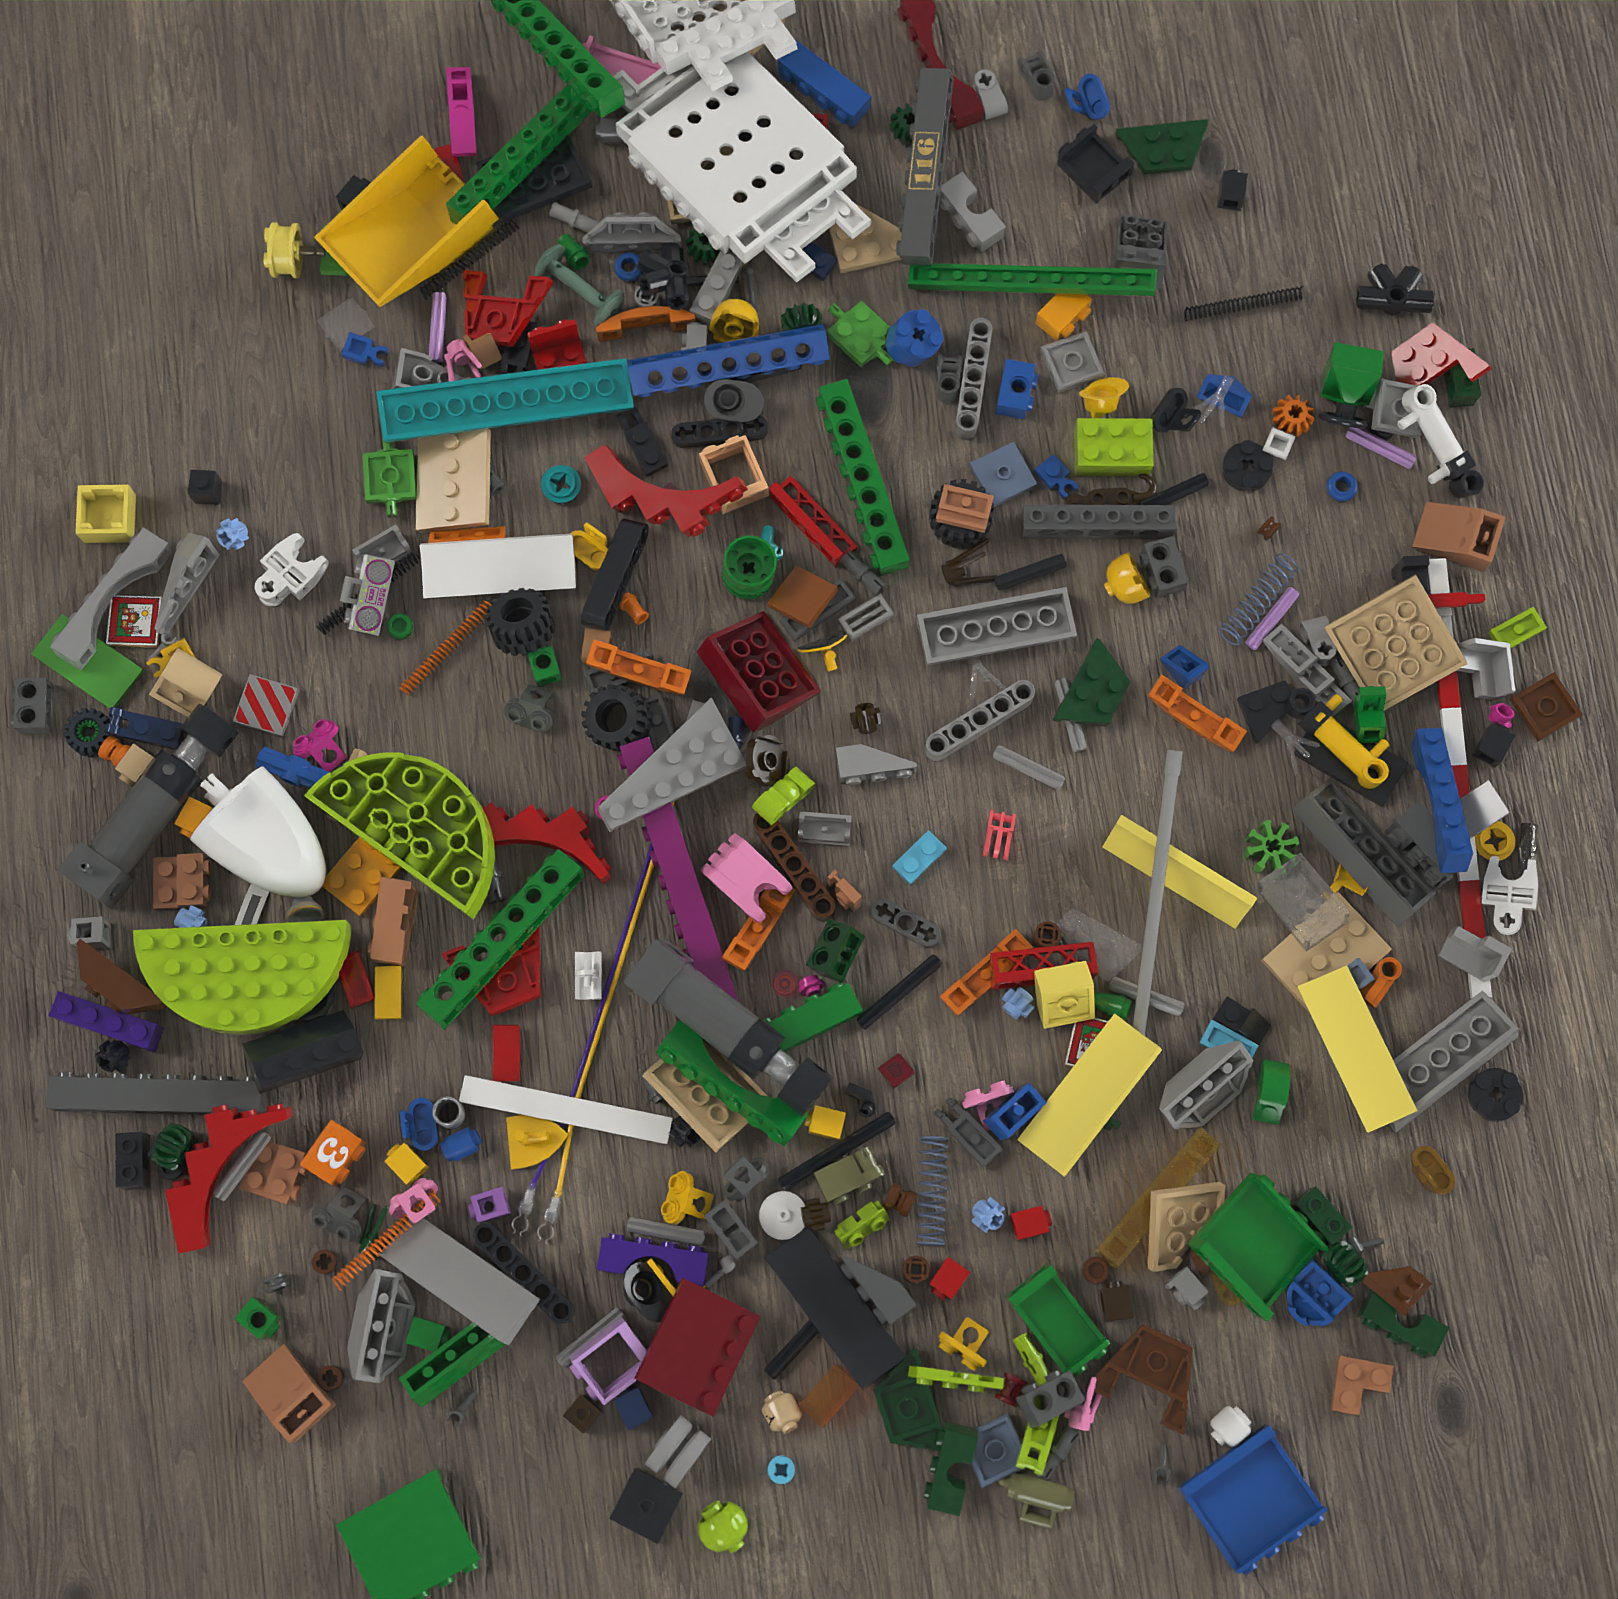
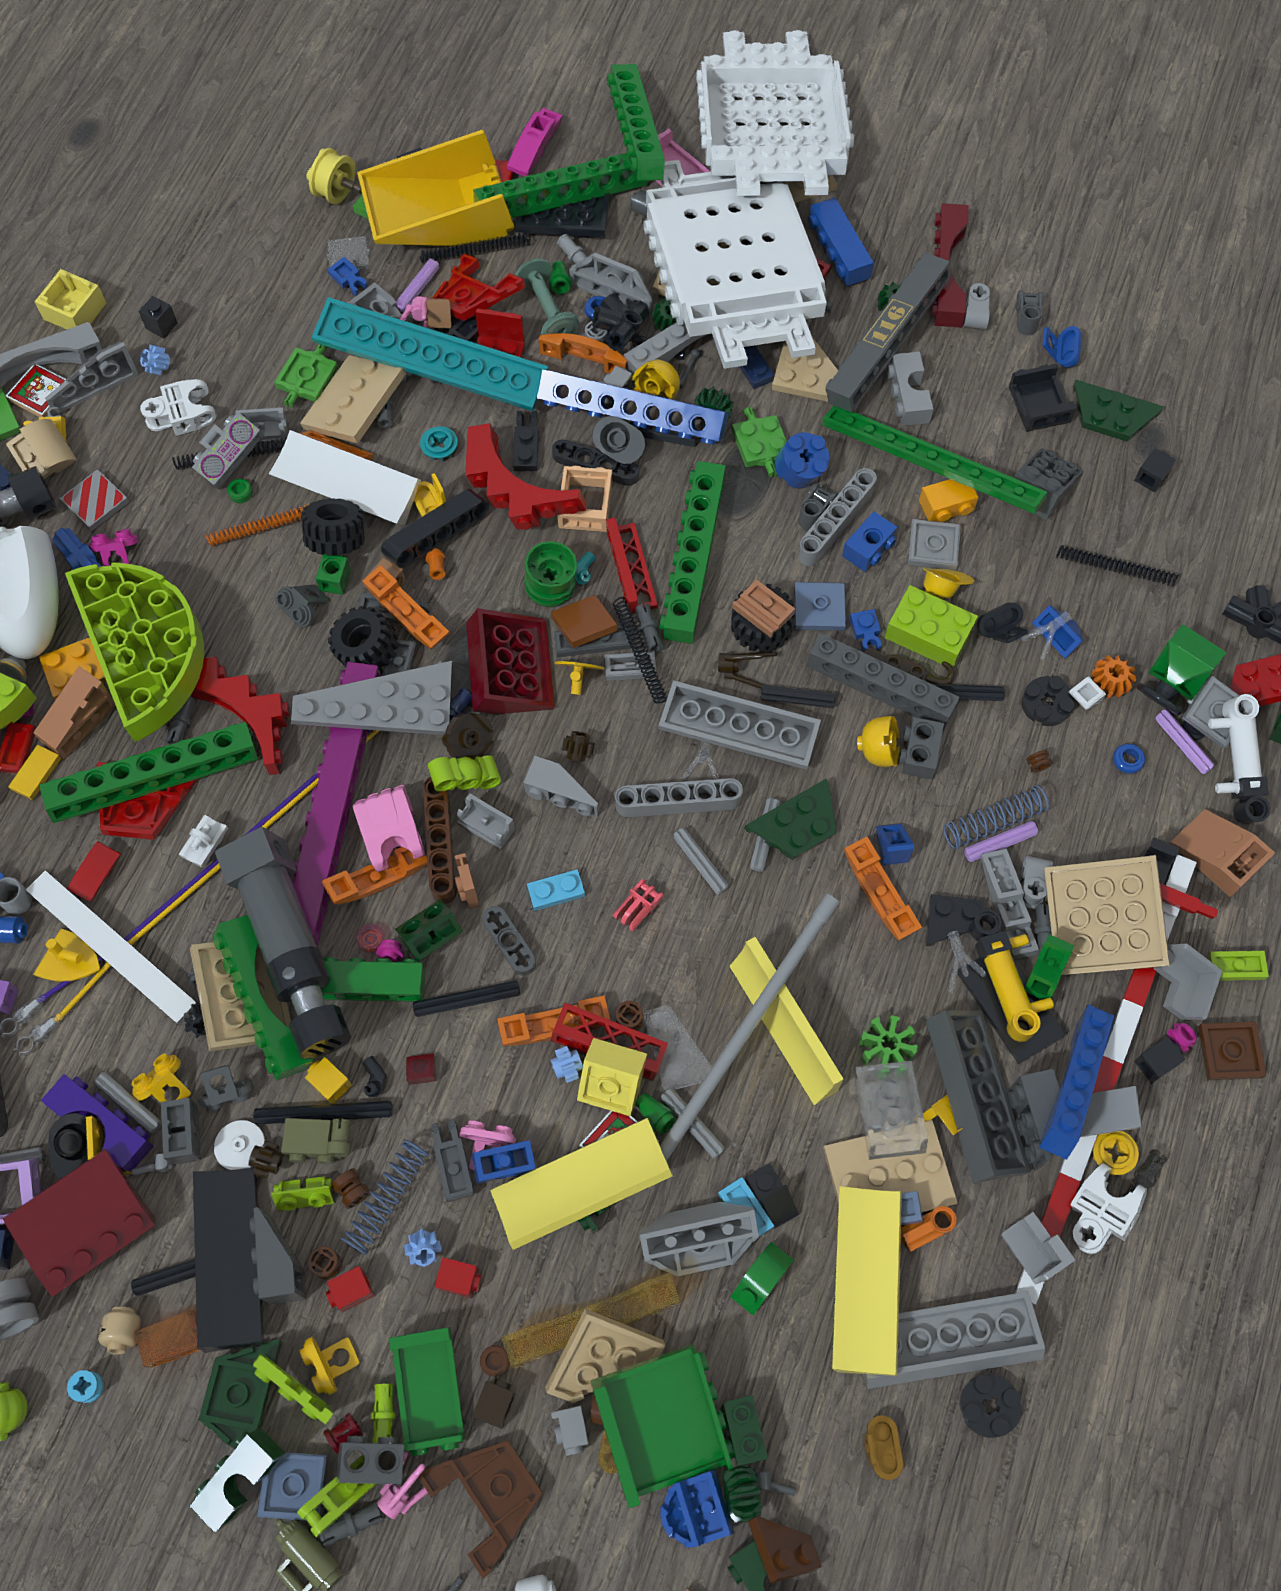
camera: 30 degrees right, 10 degrees down
(867, 602) = (640, 652): none -> black piece

